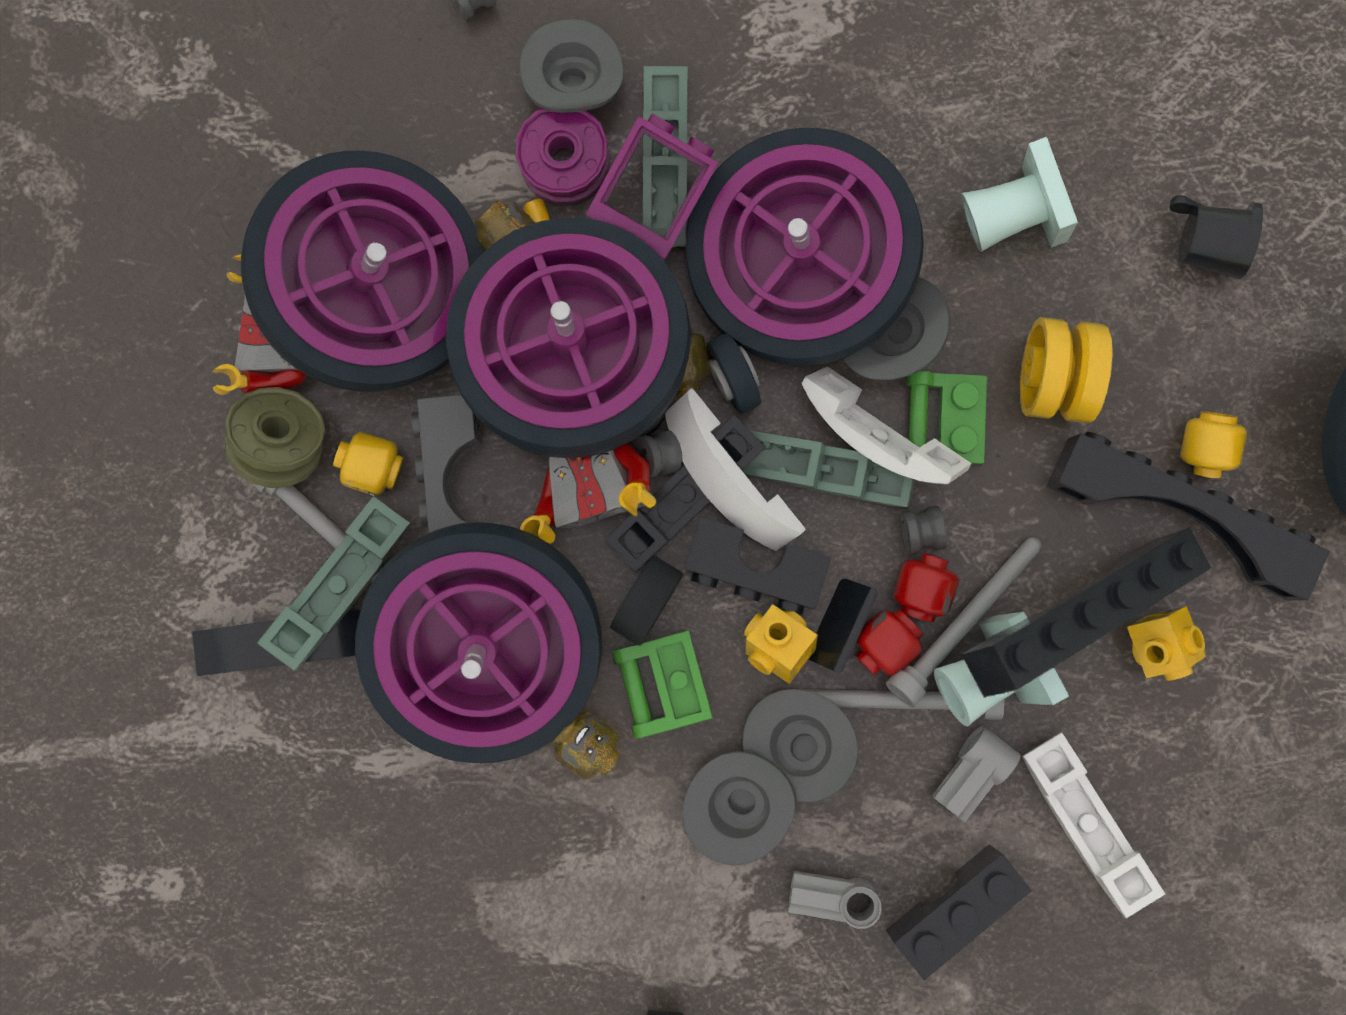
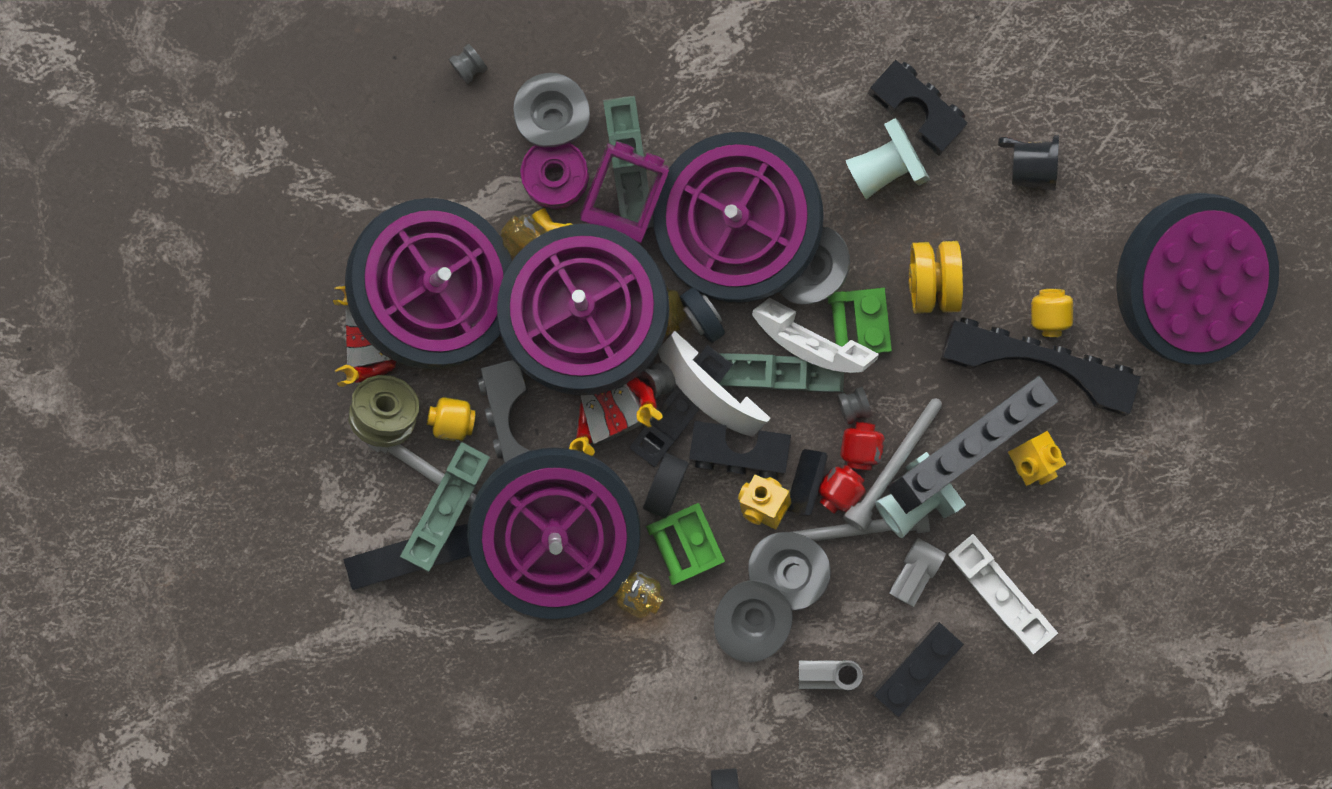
camera: 10 degrees left, 0 degrees up
(1052, 108) = (901, 86): none -> black arch

